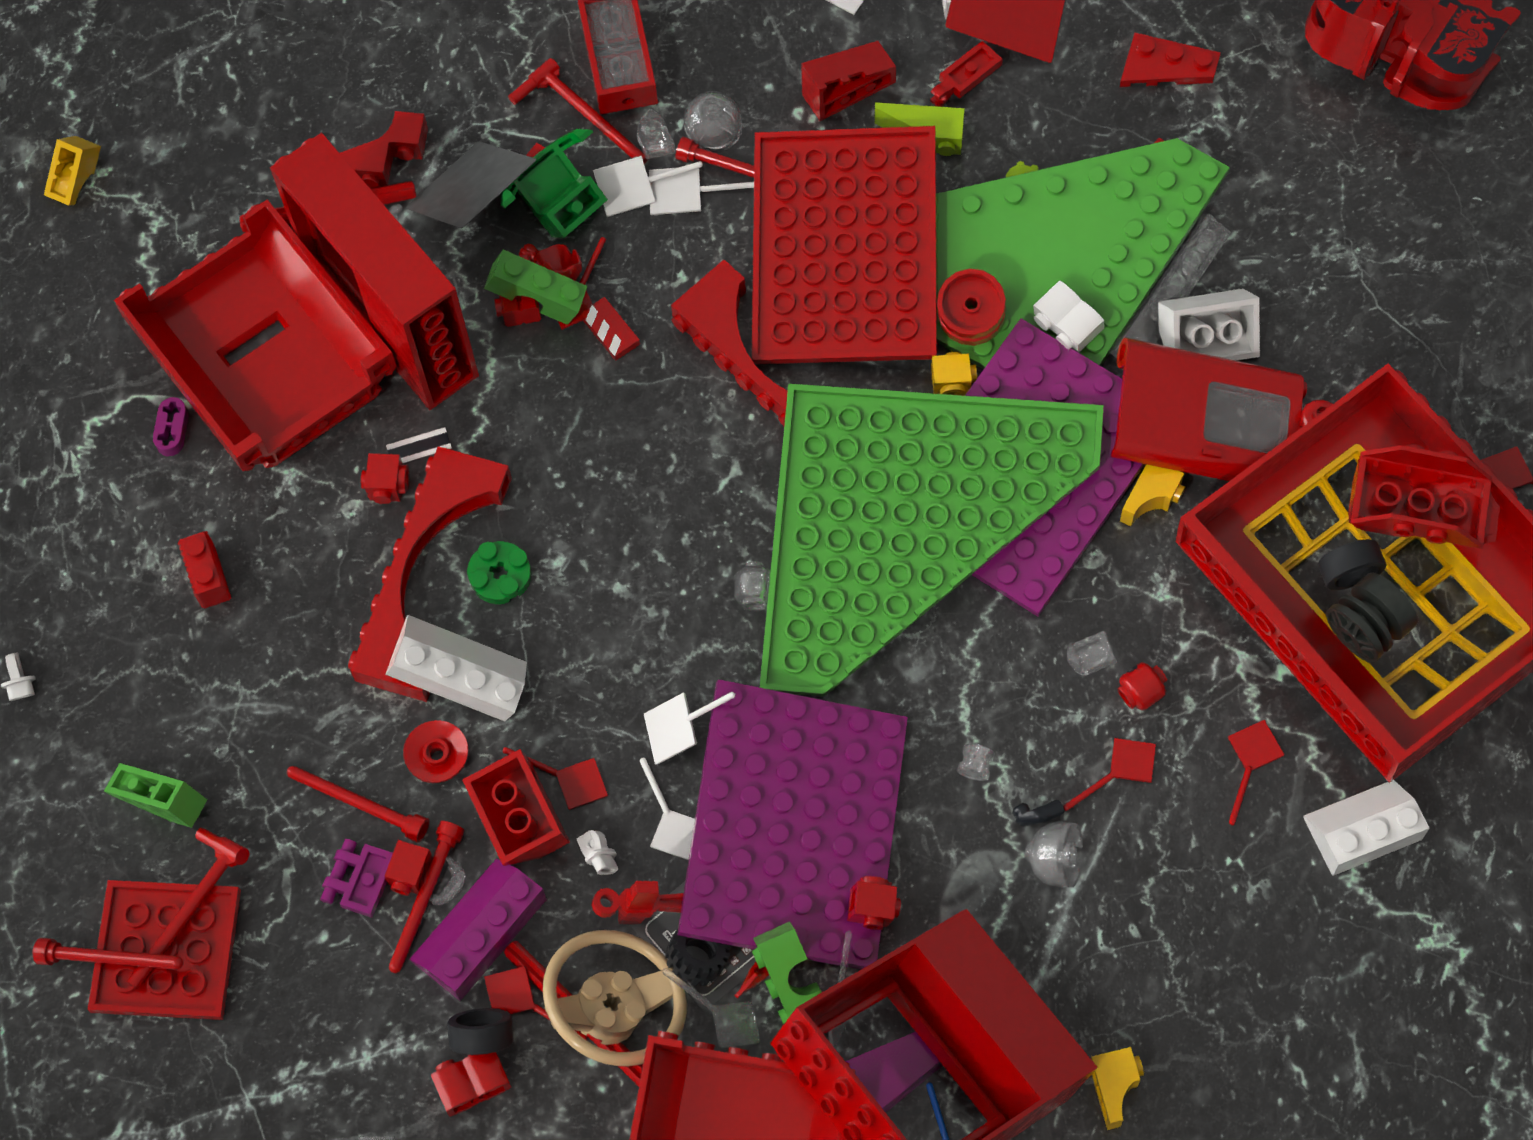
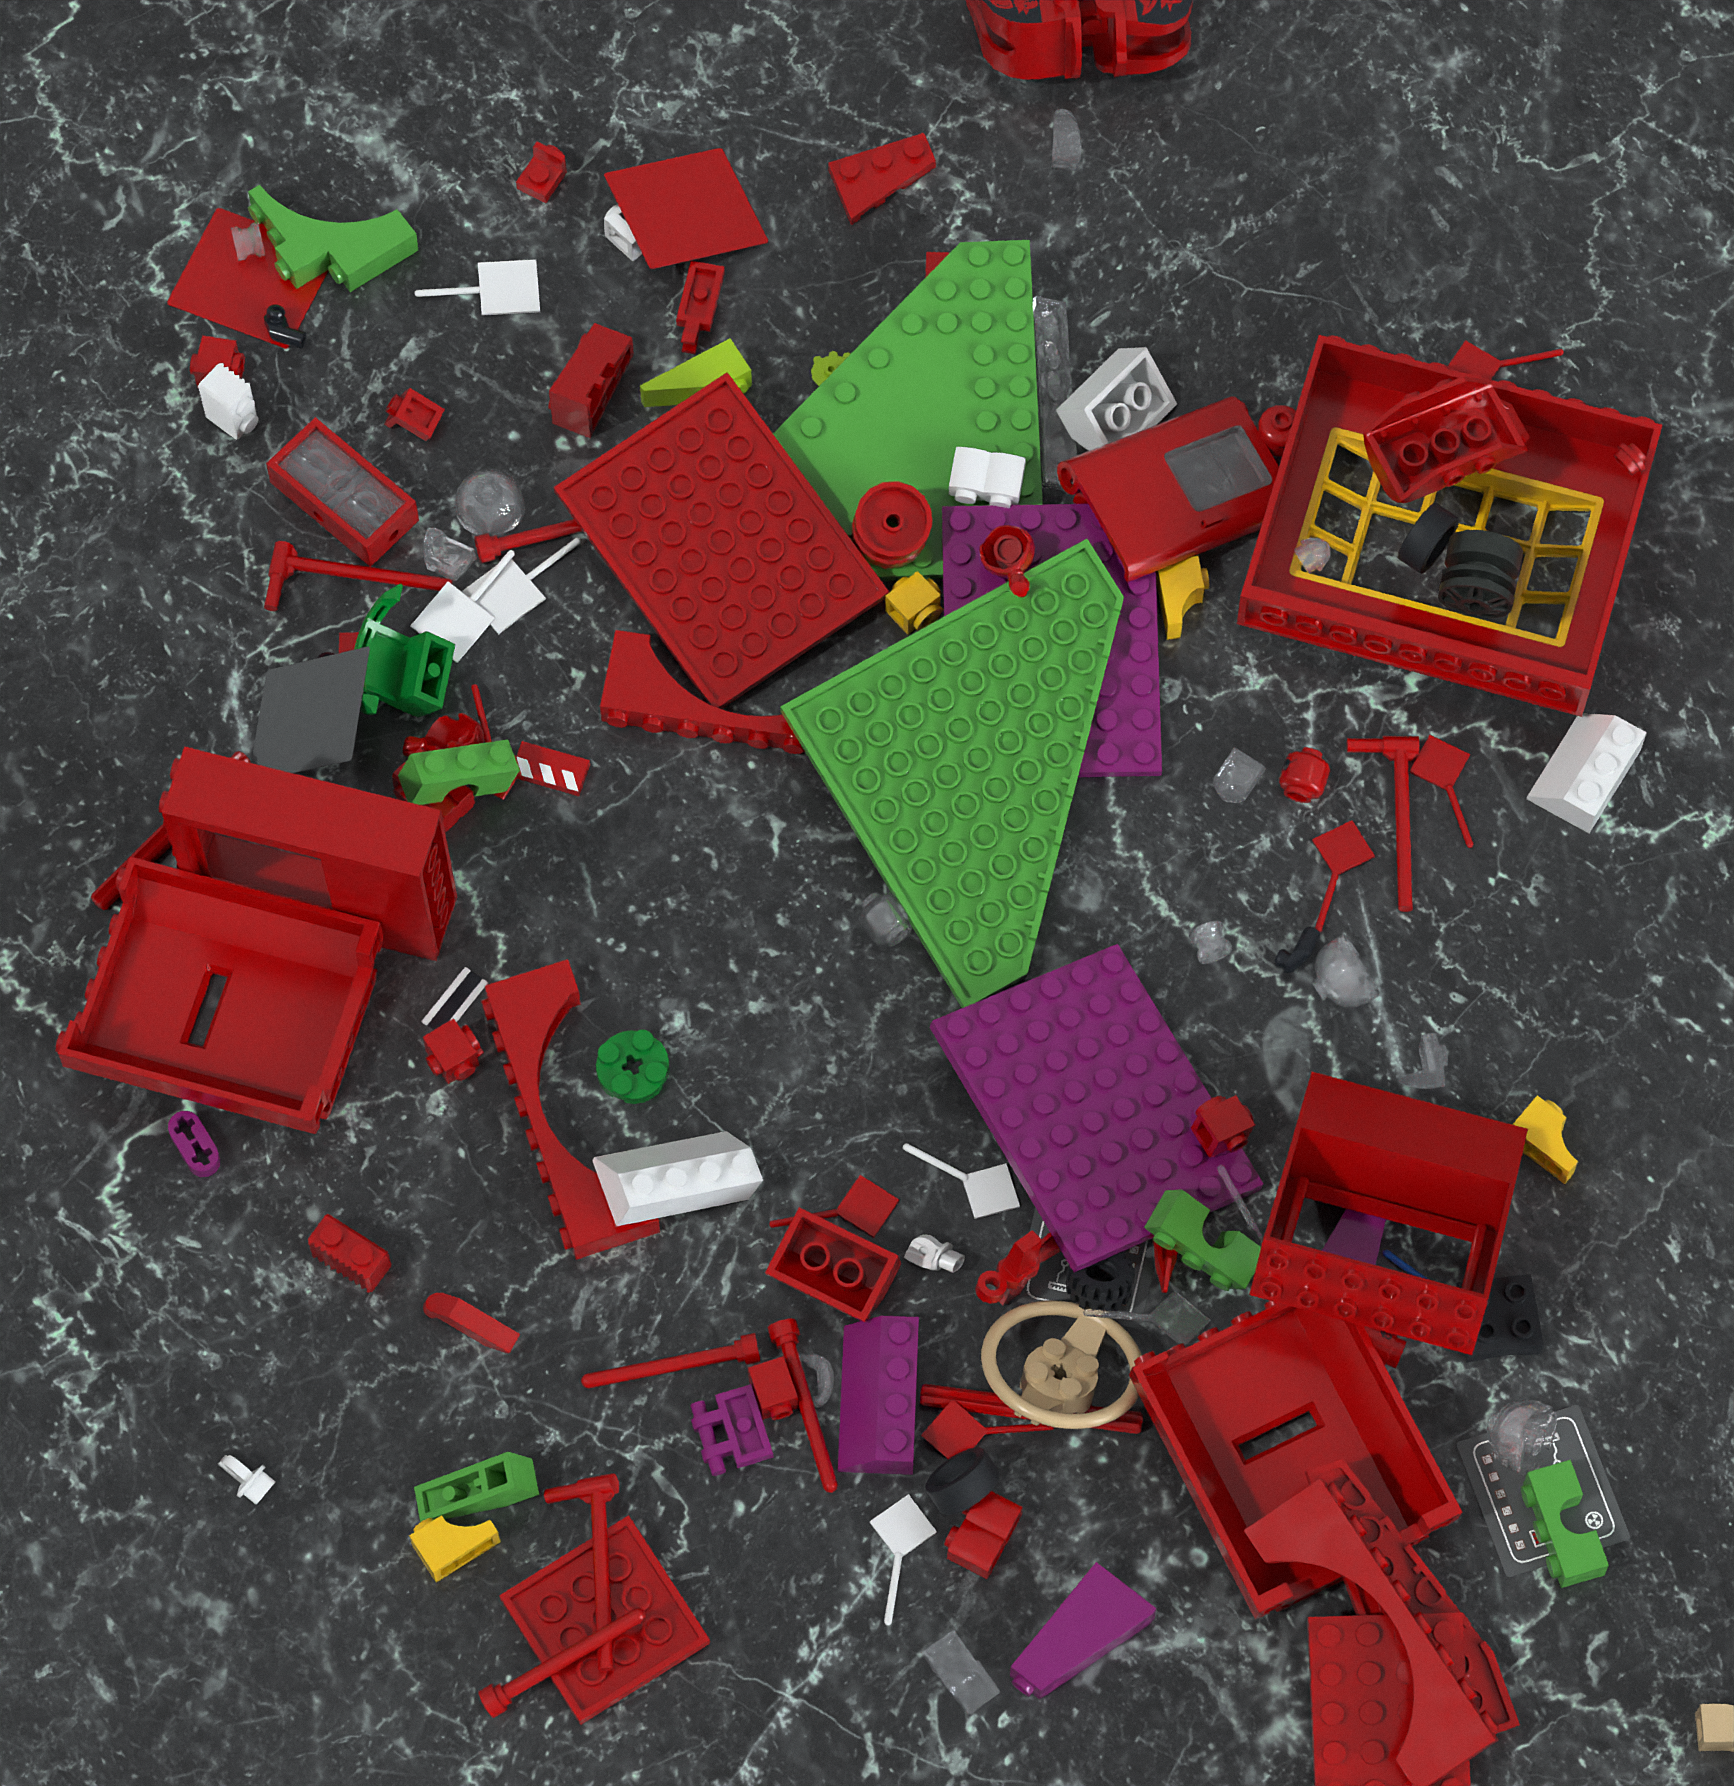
camera: 40 degrees left, 0 degrees up
(100, 820) = (448, 1546): none -> yellow arch
(246, 675) = (470, 1321): none -> red piece
(403, 140) = (198, 717): red arch -> none
(420, 1036) = (902, 1530): none -> white piece
(434, 737) = (710, 1251): red dish -> none
(672, 728) = (914, 1096): white piece -> none
(710, 29) = (414, 413): none -> red bracket
(1035, 381) = (1008, 554): none -> red hair
(1076, 964) = (1433, 1061): none -> clear plate
(1230, 716) = (1400, 750): none -> red bar
(1255, 521) = (1313, 553): none -> clear plate
(1321, 122) = (1066, 141): none -> clear helmet

